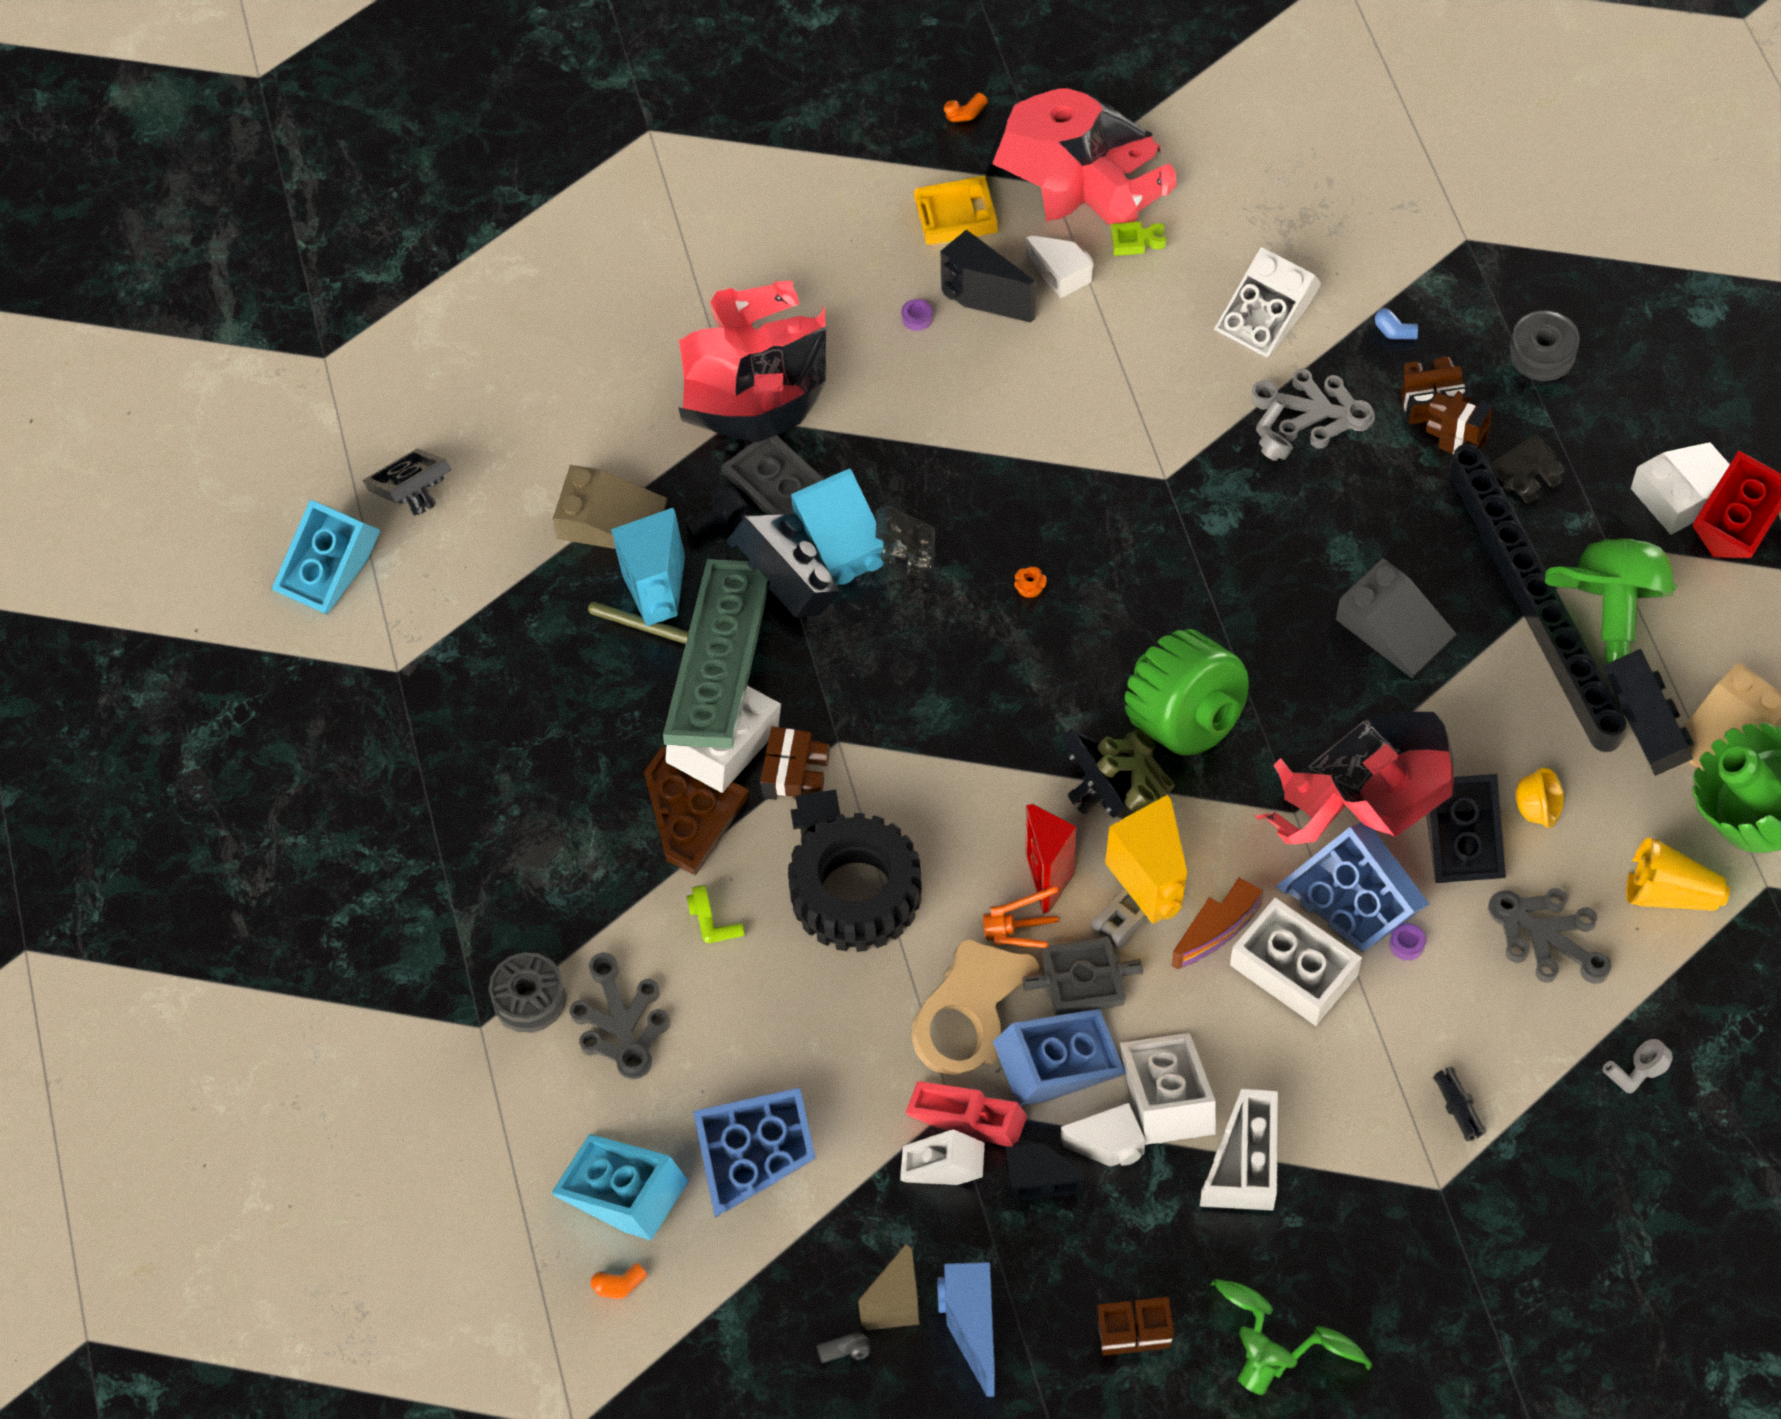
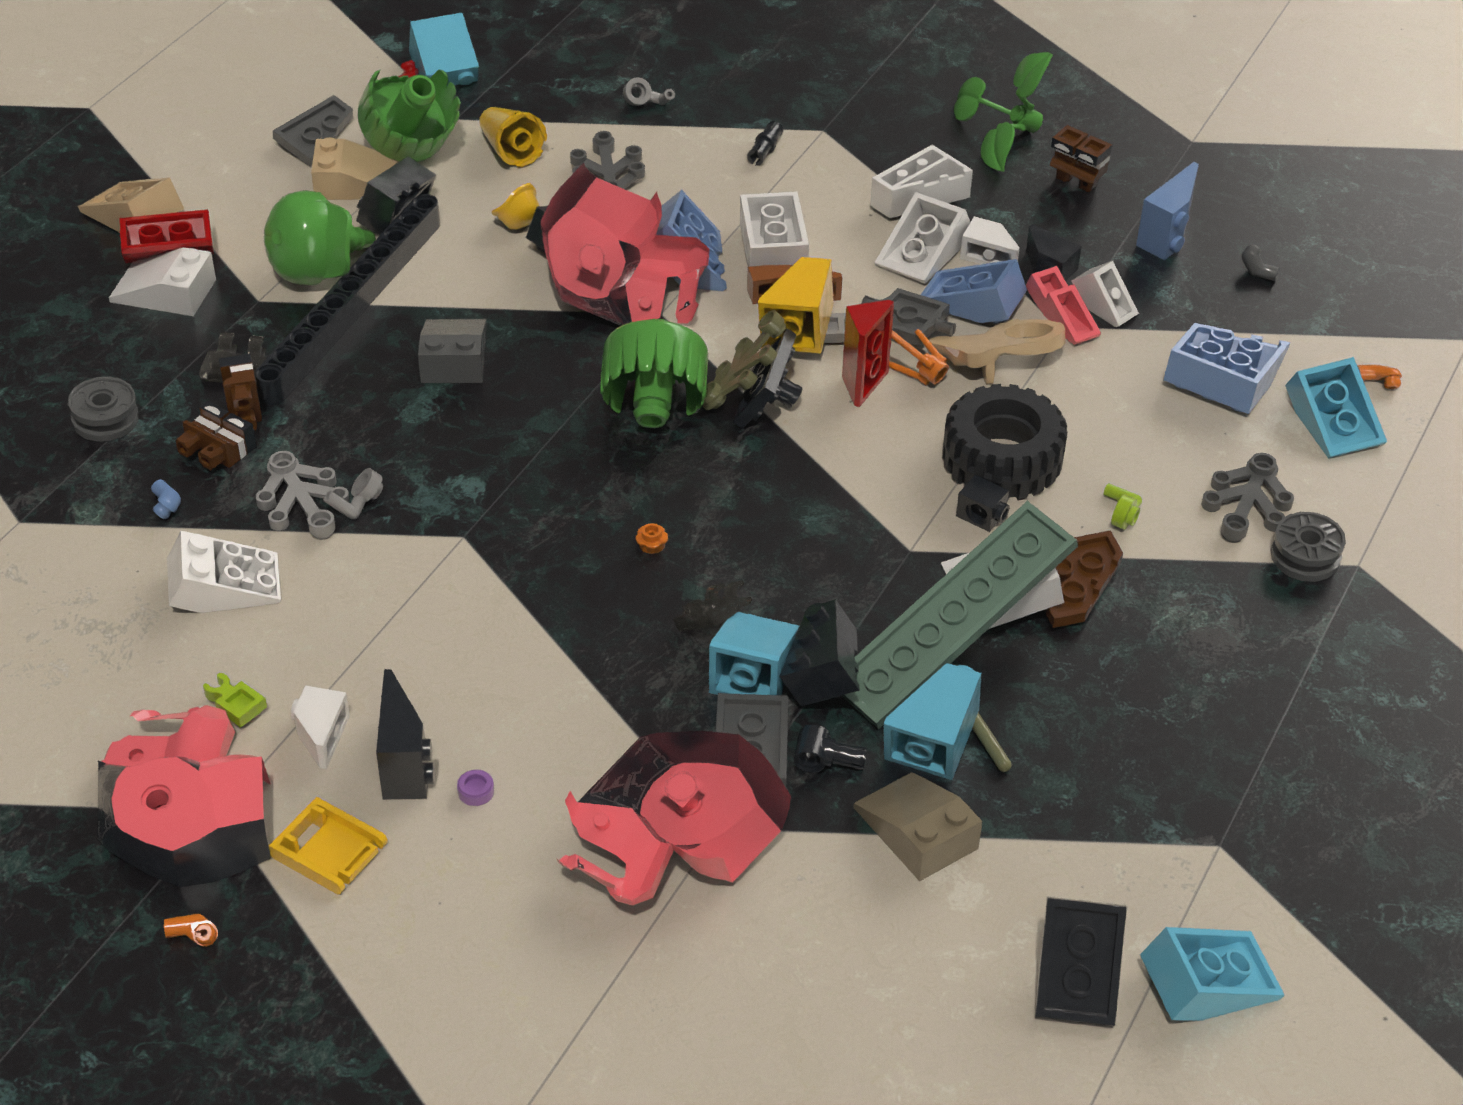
camera: 140 degrees left, 15 degrees down
(788, 764) = (963, 537): reddish brown hips -> none
(892, 1296) = (1210, 249): dark tan slope -> none

